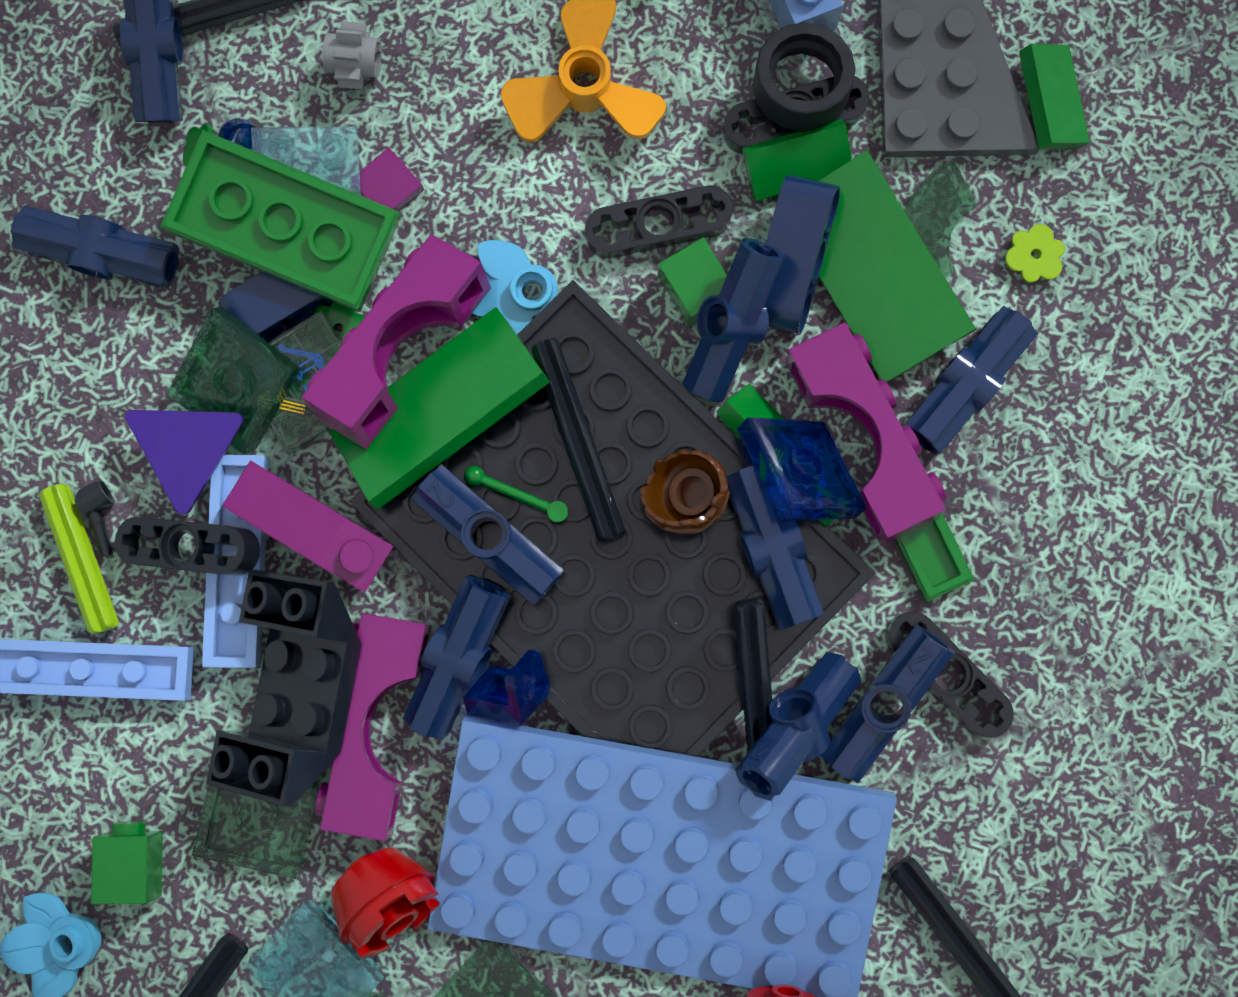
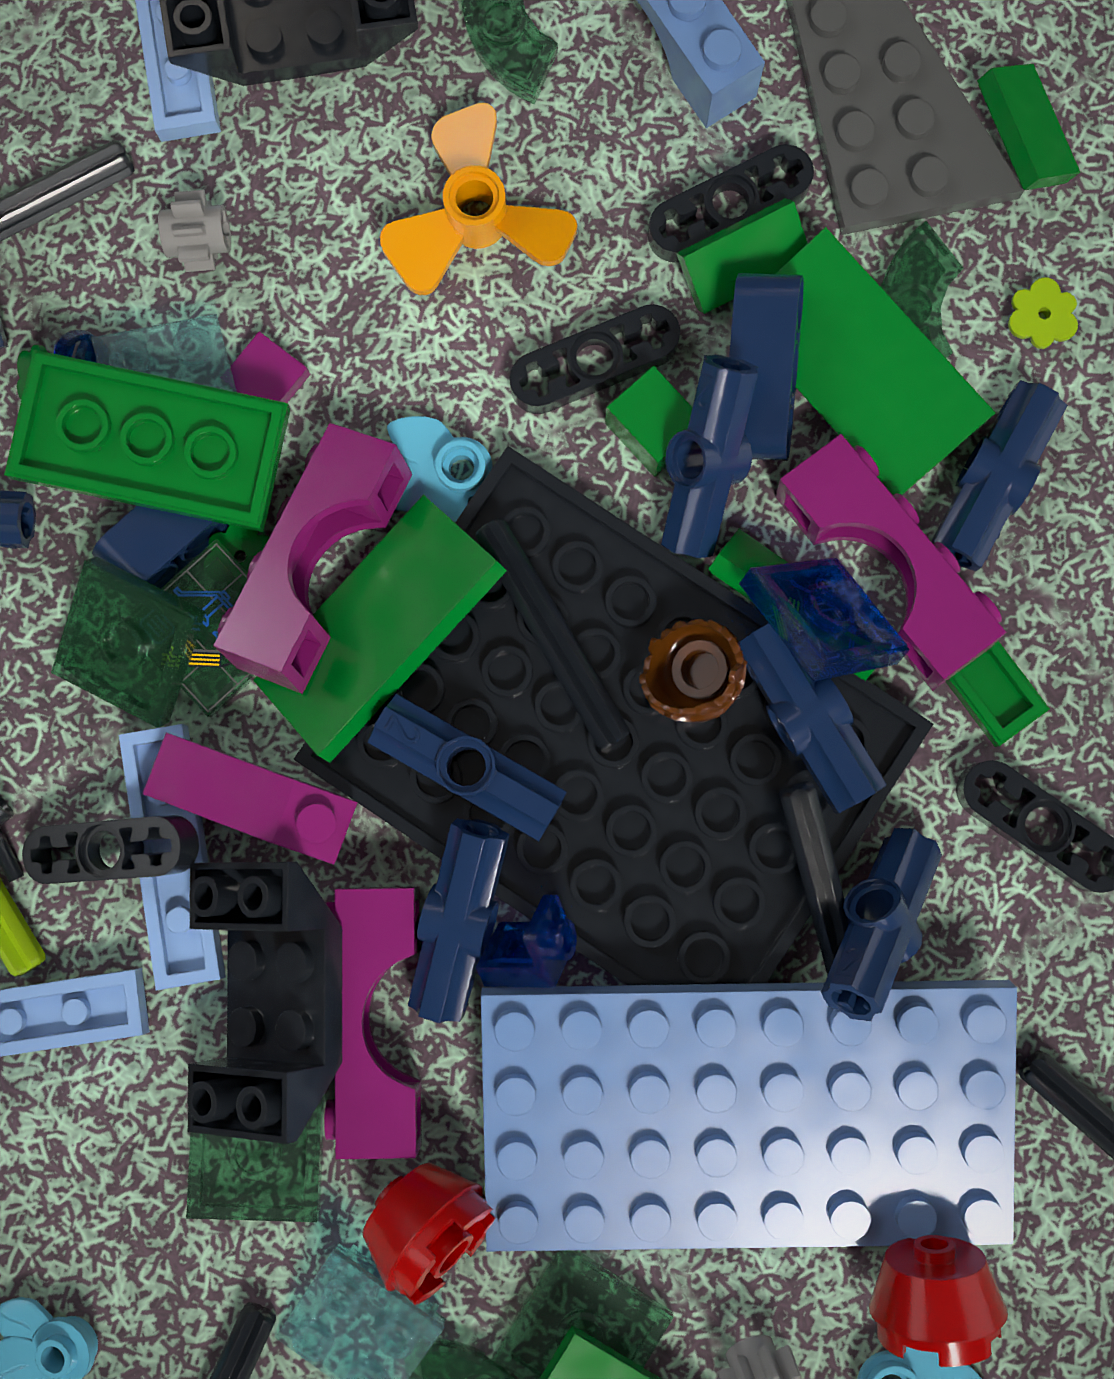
camera: 10 degrees left, 0 degrees up
(127, 864) = (111, 1246): green brick -> none
(184, 448) = (84, 733): dark purple piece -> none
(556, 511) = (542, 723): green hinge -> none
(811, 41) = (733, 113): black tyre -> none
(908, 676) = (998, 837): dark blue piece -> none

